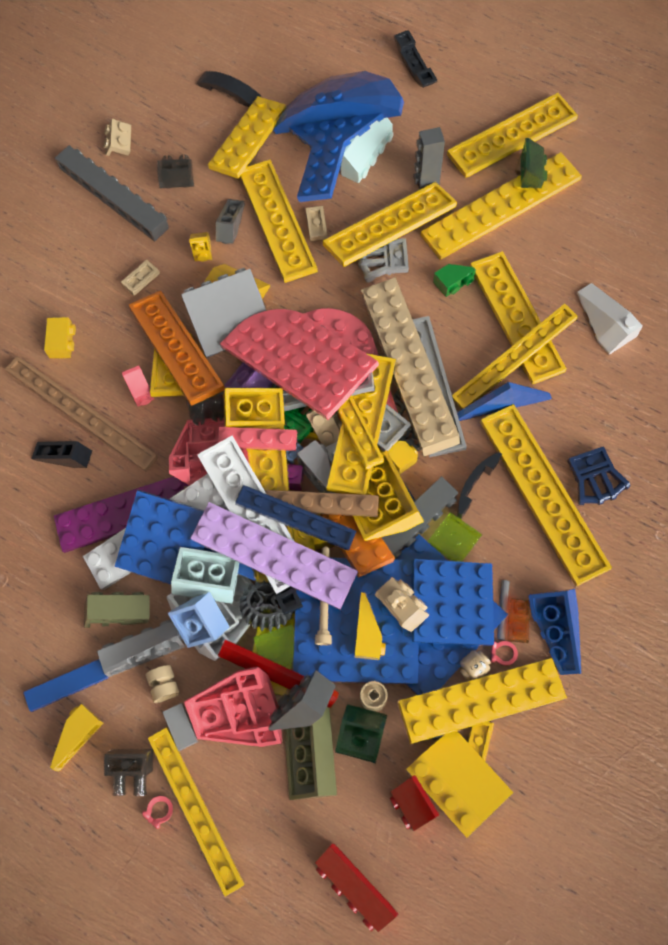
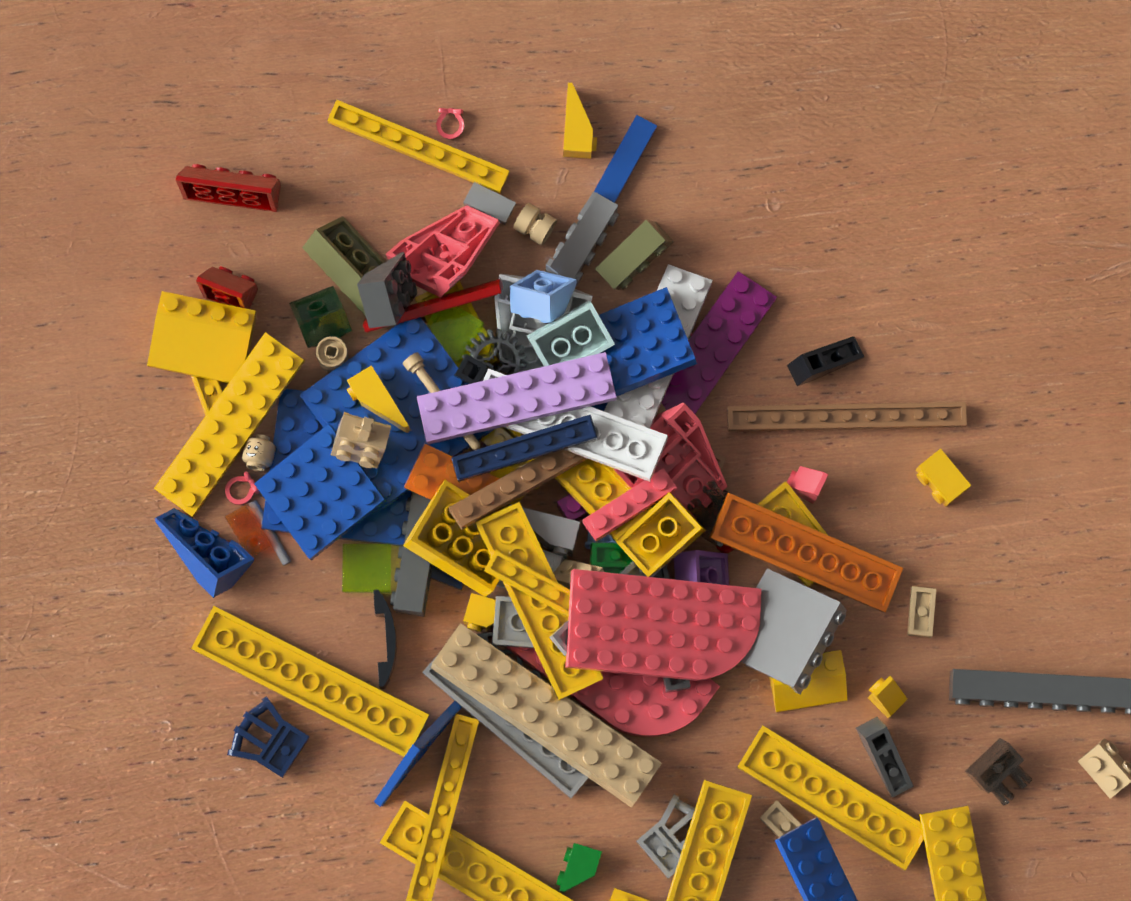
camera: 135 degrees right, 10 degrees up
(125, 763) = (505, 138): clear smoke brick -> none

